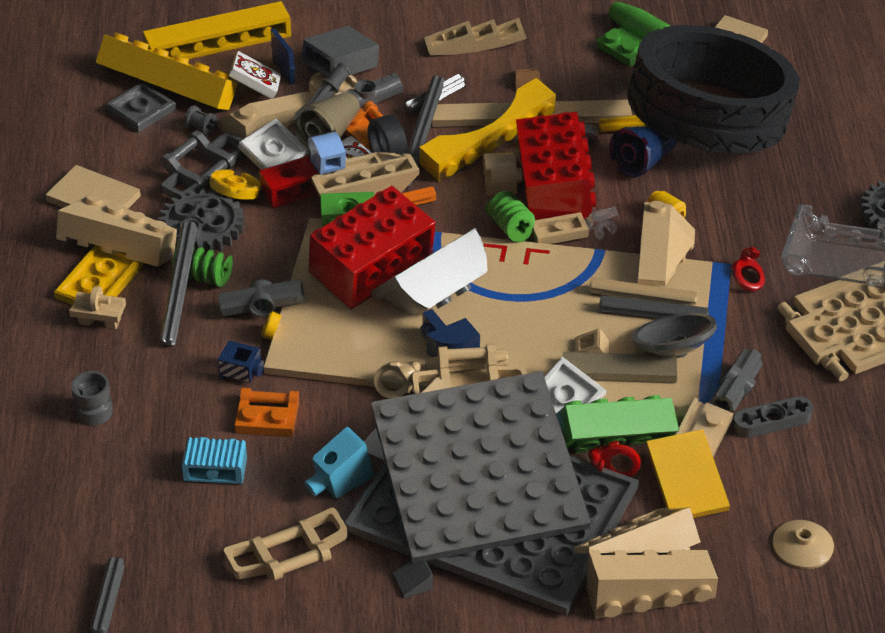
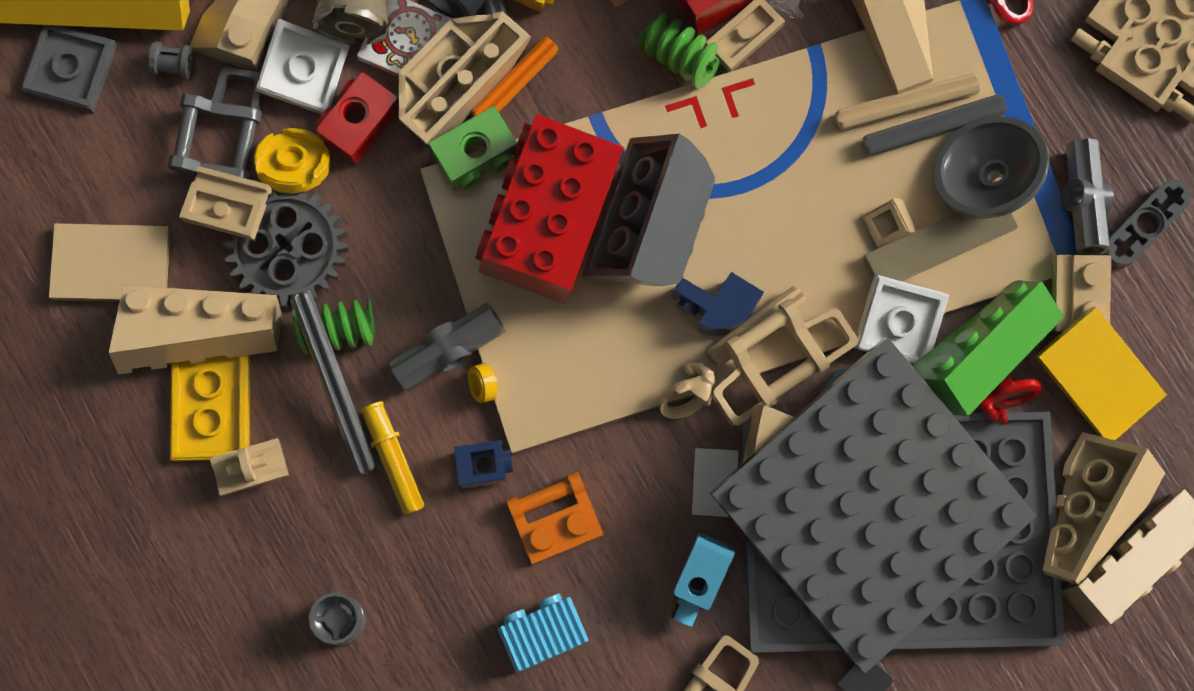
camera: 30 degrees left, 35 degrees up
(180, 181) = (225, 203): none -> tan plate
(189, 331) = (392, 457): none -> yellow axle
(327, 152) = (396, 67): light blue brick -> none

